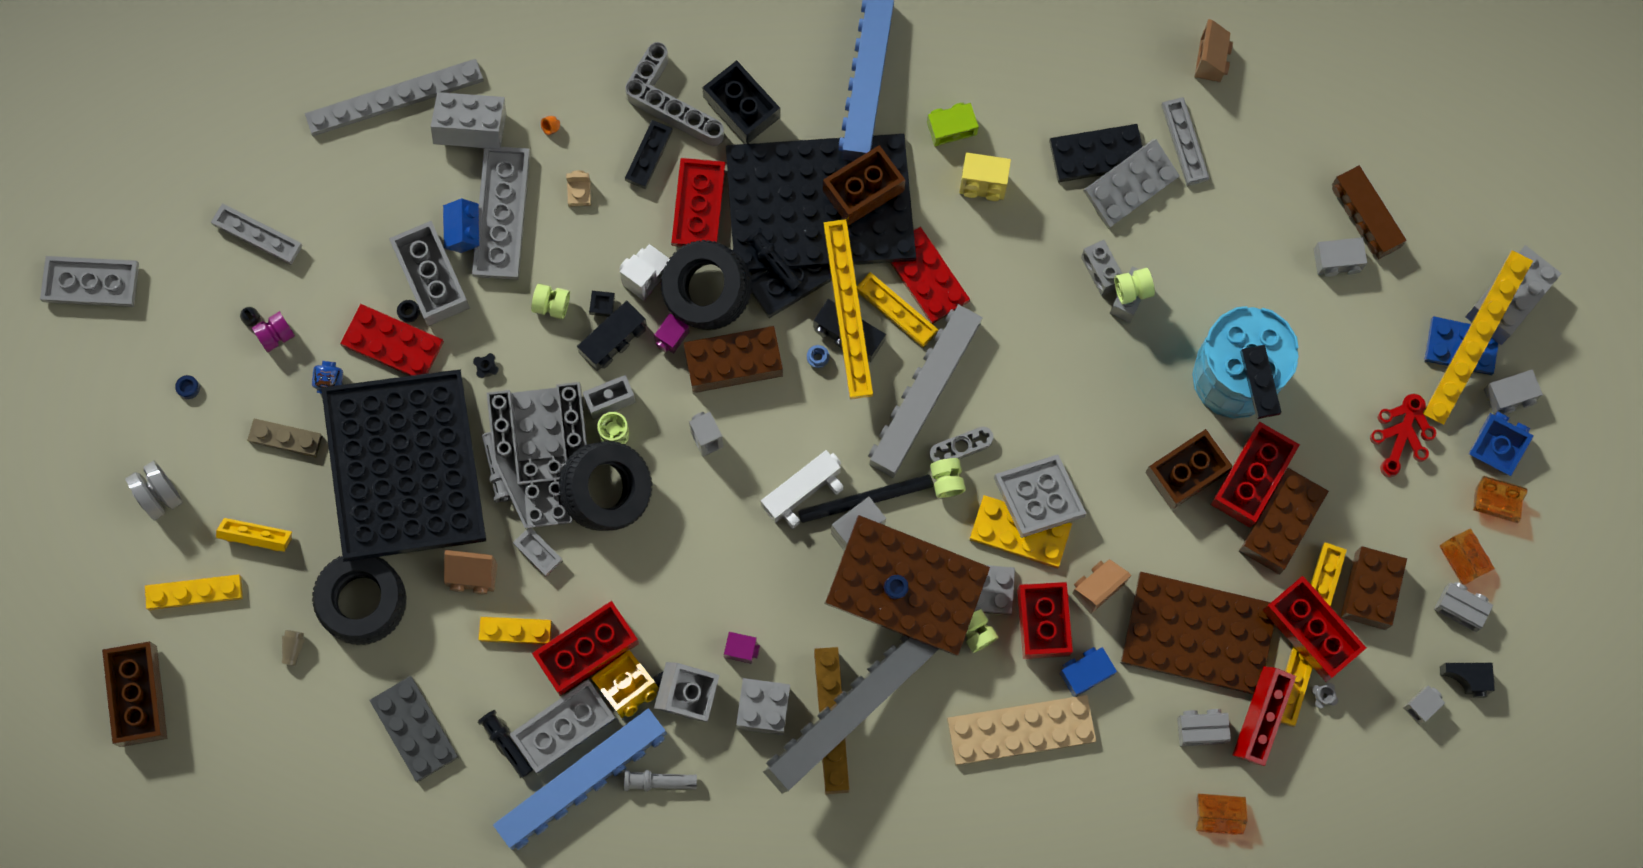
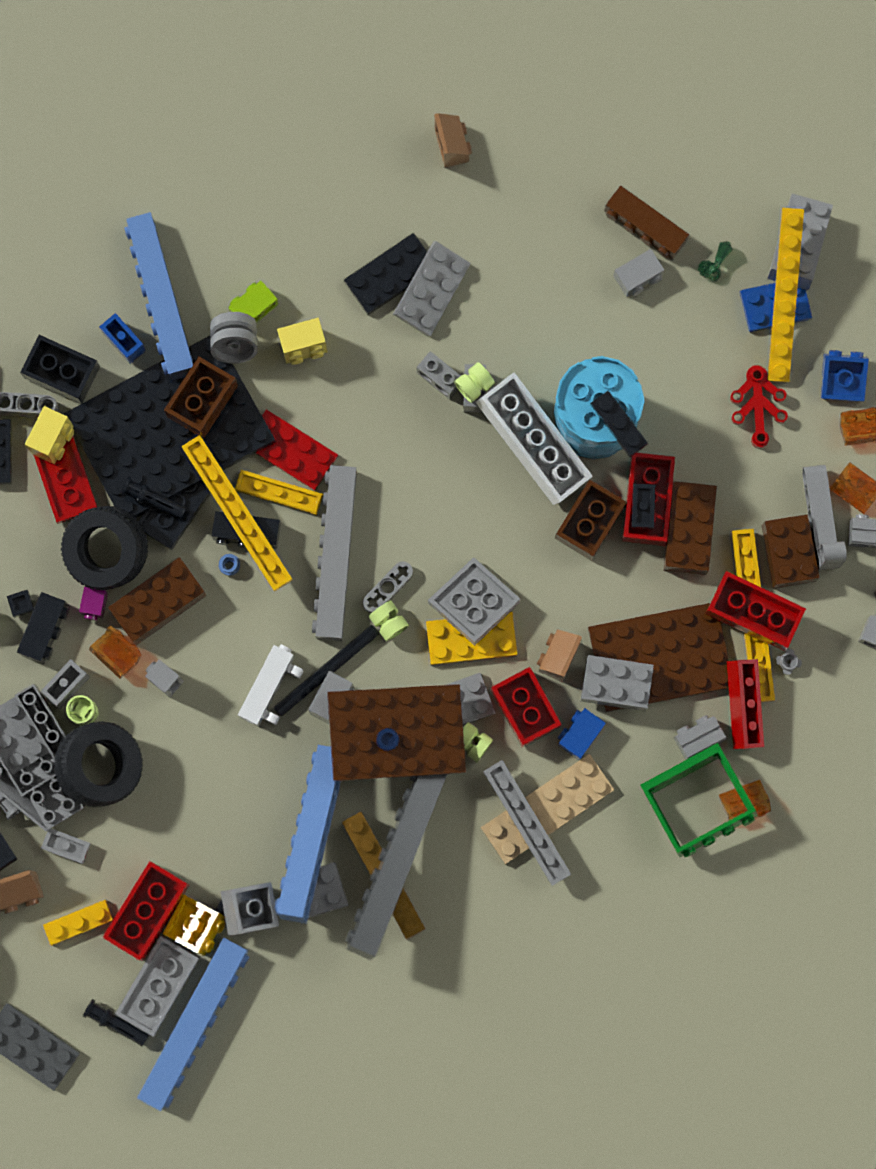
camera: 20 degrees left, 5 degrees up
(643, 271) = (43, 558): white brick -> none
(646, 781) = (252, 998): light grey pin -> none
(671, 389) = (116, 652): none -> clear orange bracket
(703, 157) = (50, 435): none -> light yellow brick
(741, 648) = (277, 848): magenta brick -> none
(775, 651) = (310, 839): none -> medium blue brick
(814, 99) = (122, 338): none -> blue brick
(920, 143) = (233, 337): none -> light grey wheel
(995, 733) = (527, 823): none -> light grey plate
(1145, 637) = (616, 683): none -> light grey brick
(1168, 365) = (534, 439): none -> white brick
(1172, 752) = (684, 769): none -> green window
(1185, 141) = (461, 229): light grey tile -> none
(1247, 477) = (643, 506): none -> black plate
(1410, 280) = (707, 268): none -> clear green piece
(1413, 603) = (827, 550): none -> light grey beam
(1513, 392) = (835, 327): light grey brick -> none

